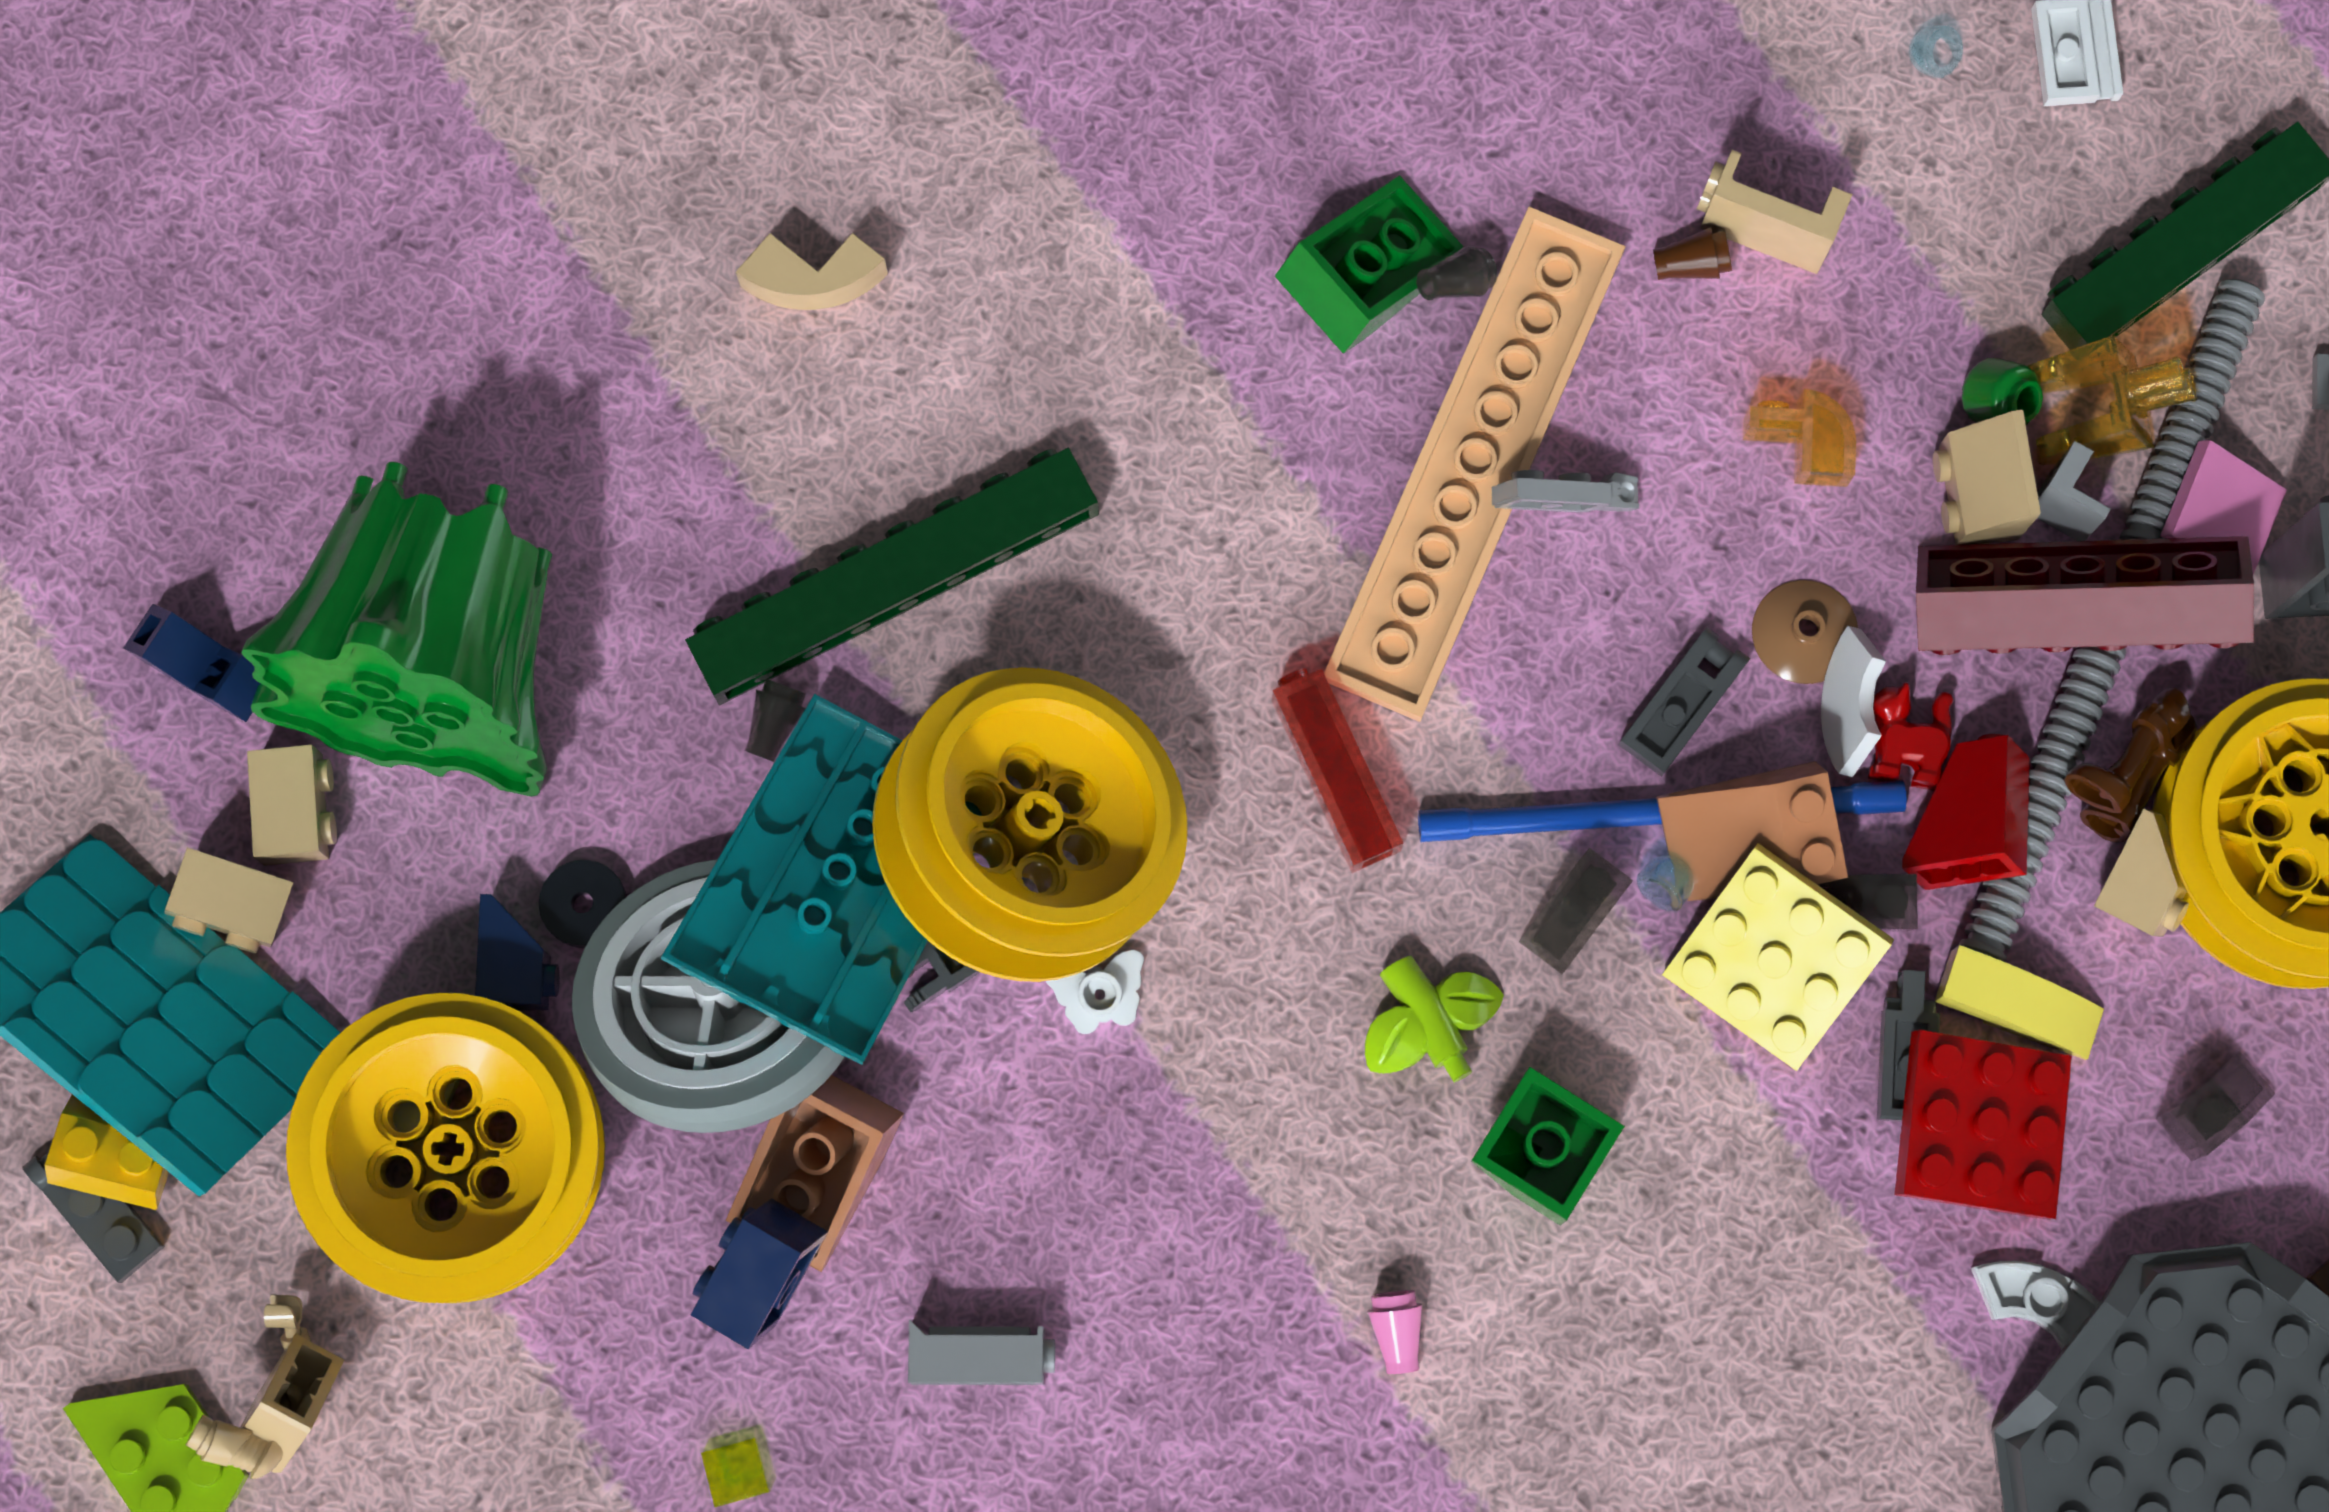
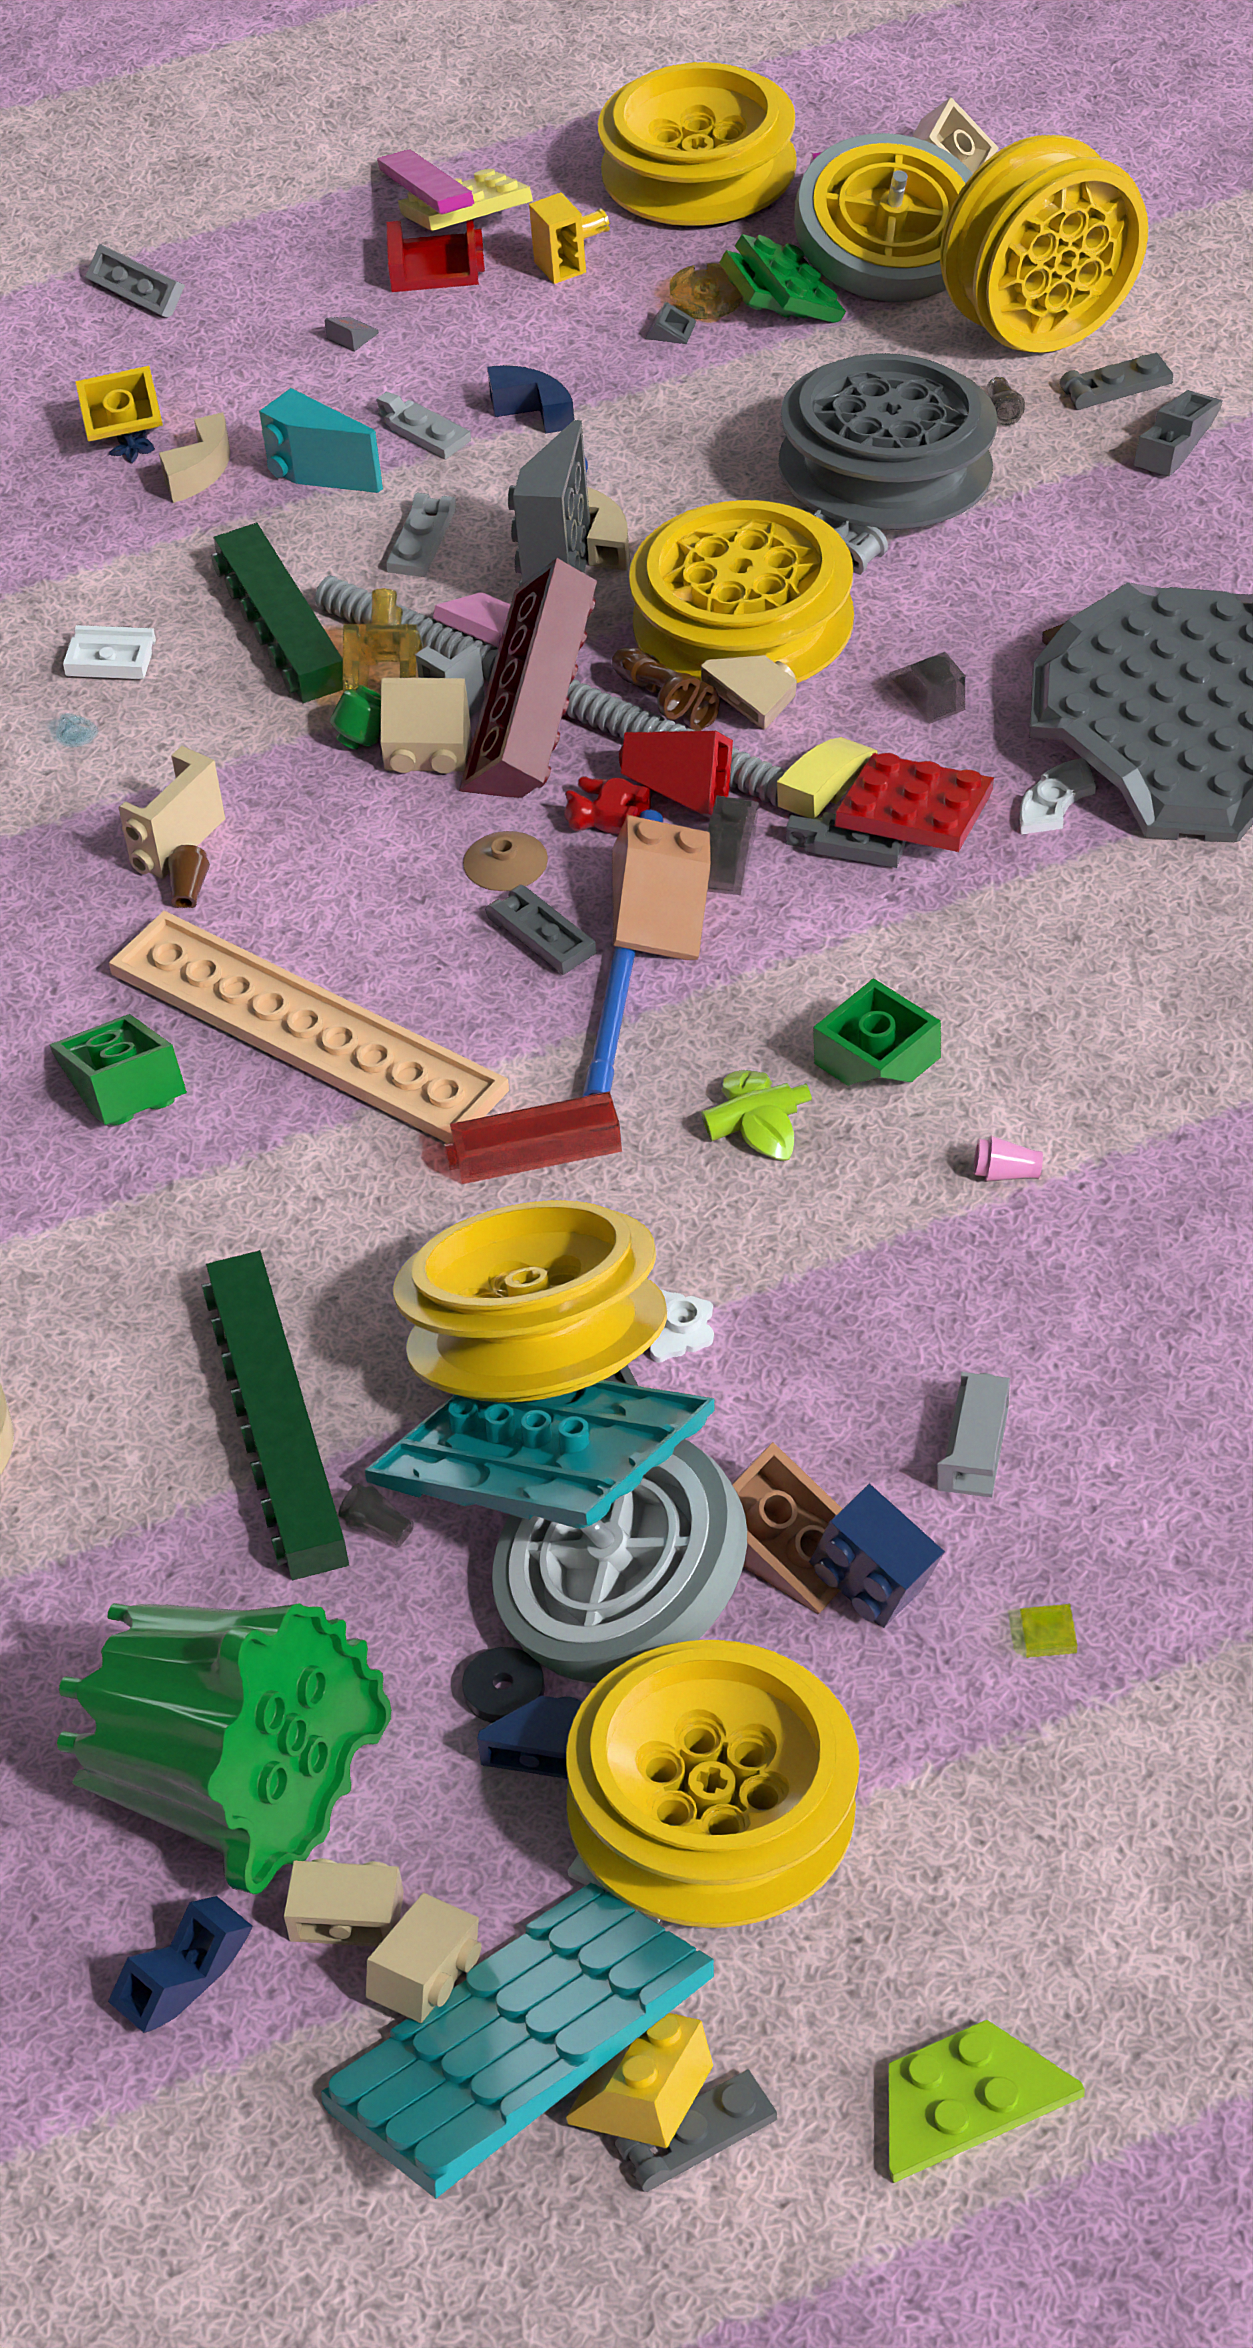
camera: 75 degrees left, 30 degrees down
(284, 1405) = (925, 1951): tan torso -> none
(1459, 275) = (149, 995): clear smoke cone -> none
(1569, 494) = (351, 968): light grey hinge -> none
(1575, 911) = (689, 1005): clear smoke slope -> none
(1666, 882) = (672, 951): clear light blue piece -> none
(1777, 956) = (759, 888): light yellow plate -> none
(1820, 432) = (354, 822): clear yellow brick -> none
(1849, 701) = (567, 833): white tile -> none

